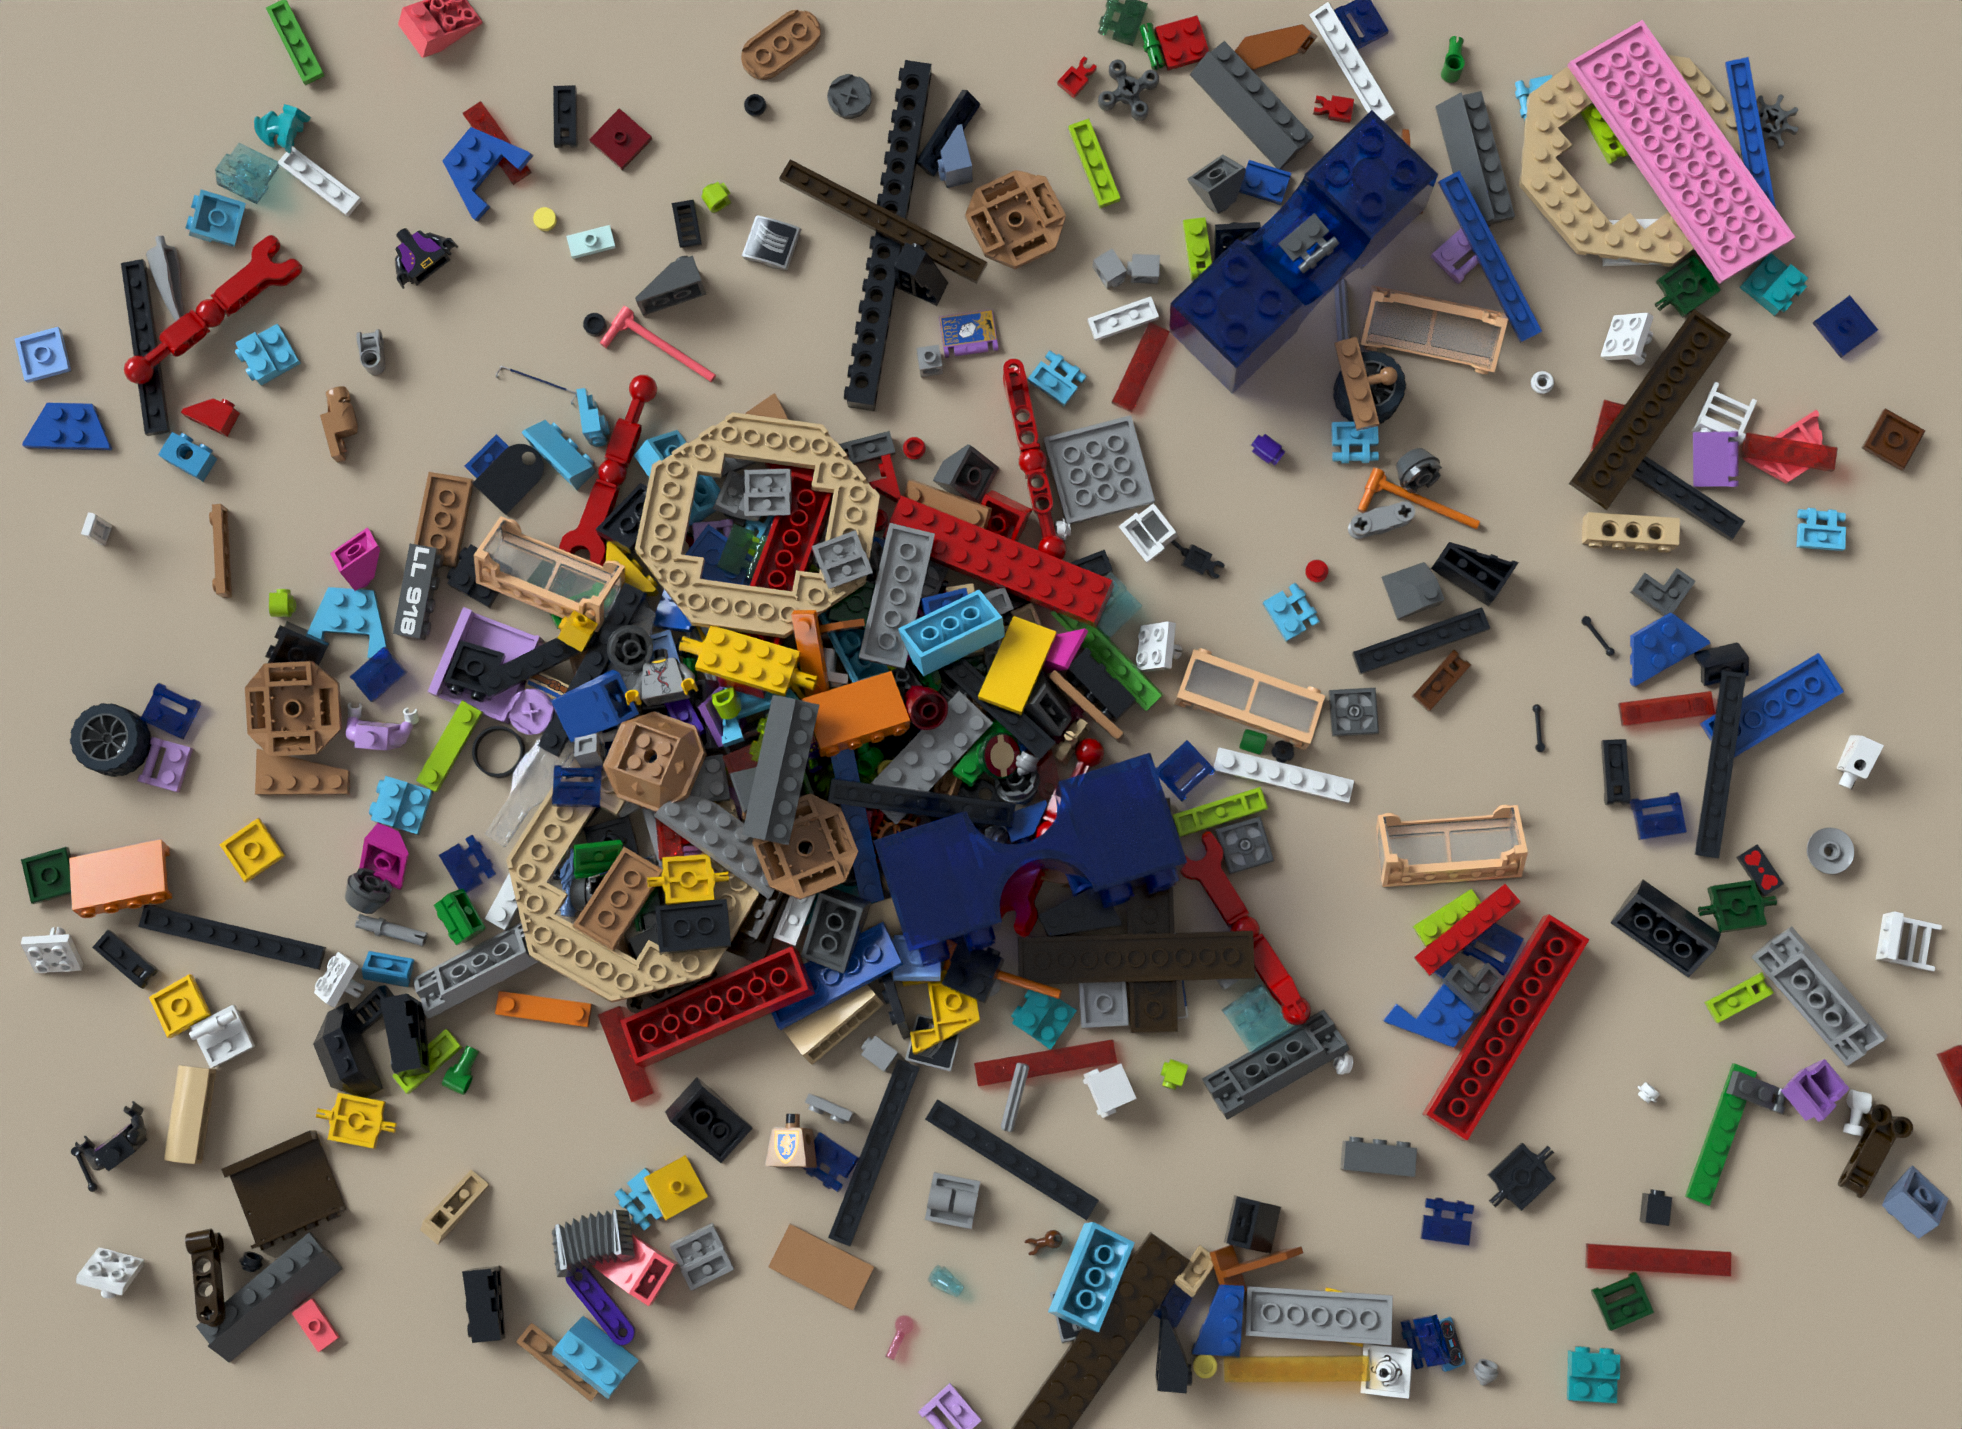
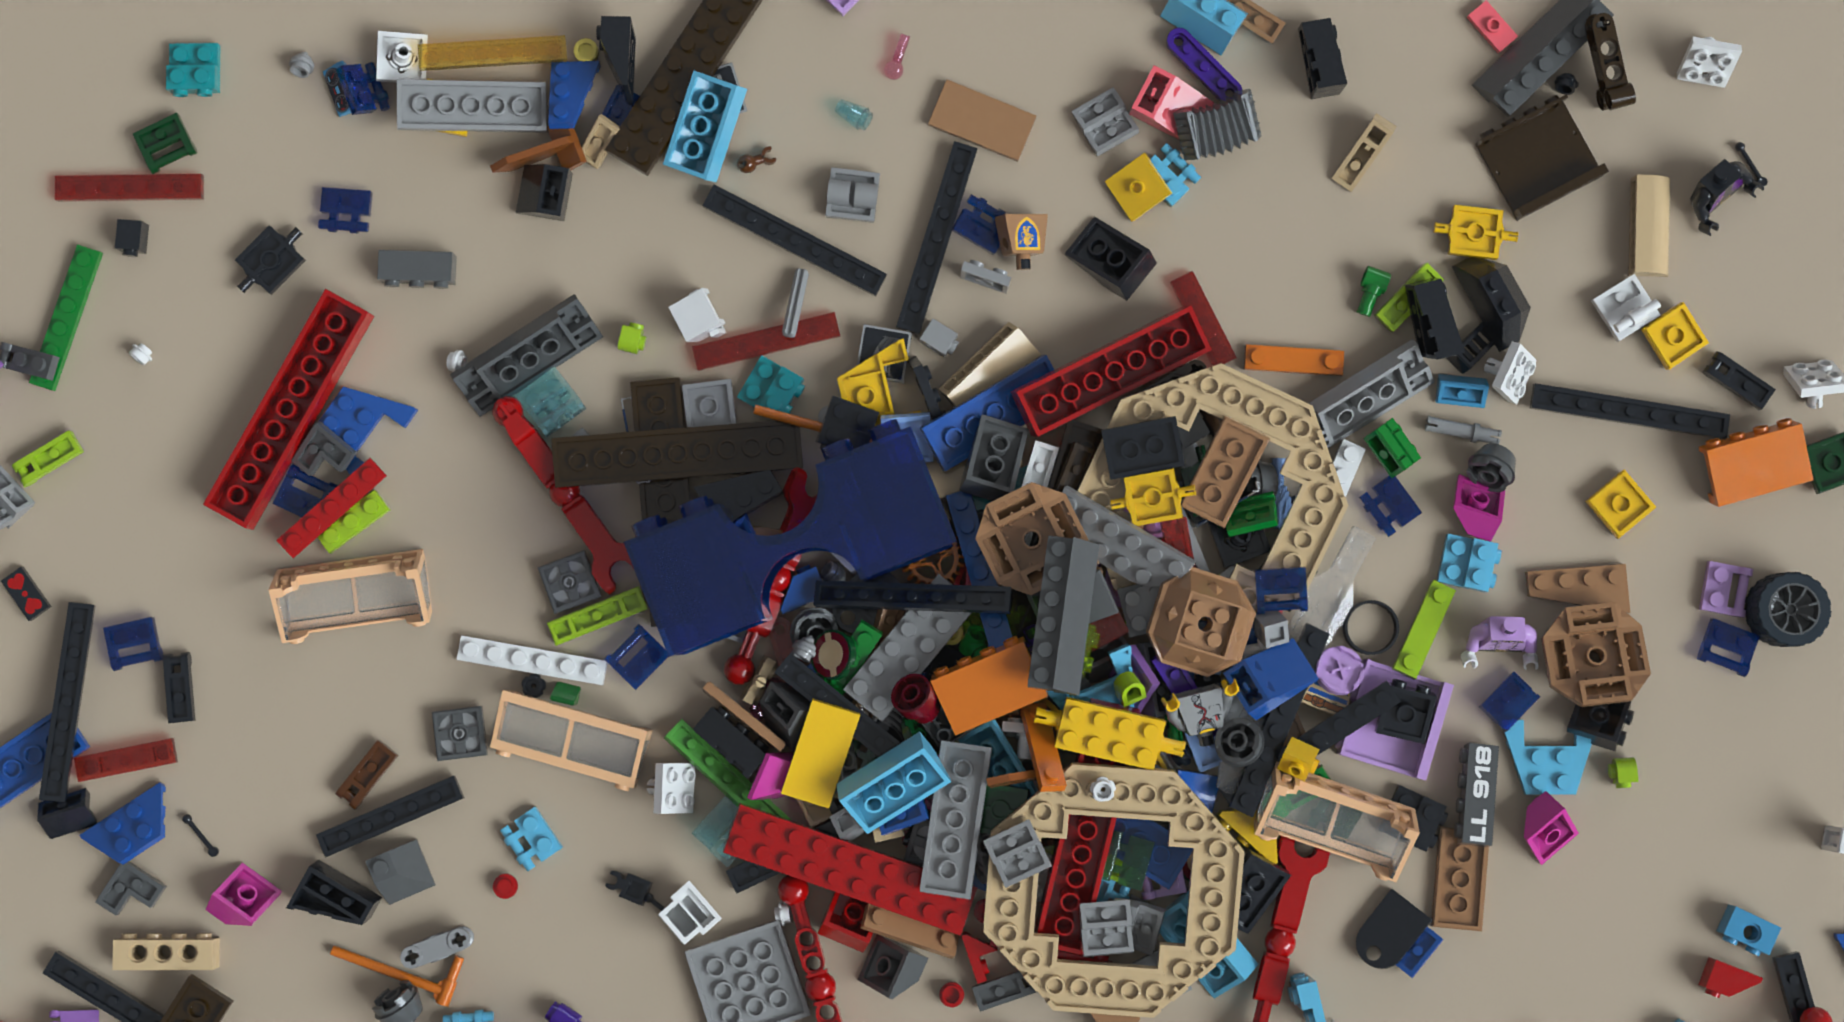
camera: 175 degrees right, 5 degrees up
(222, 581) = (1691, 793): medium nougat plate -> none
(338, 421) = (1586, 980): medium nougat plate -> none
(560, 453) = (1339, 961): medium azure slope -> none
(758, 604) = (1105, 795): none -> white plate
(1540, 747) = (260, 710): black hinge -> none
(1558, 575) = (242, 897): none -> dark pink slope
(1666, 928) = (123, 524): black slope -> none
(1737, 906) = (49, 552): dark green plate -> none

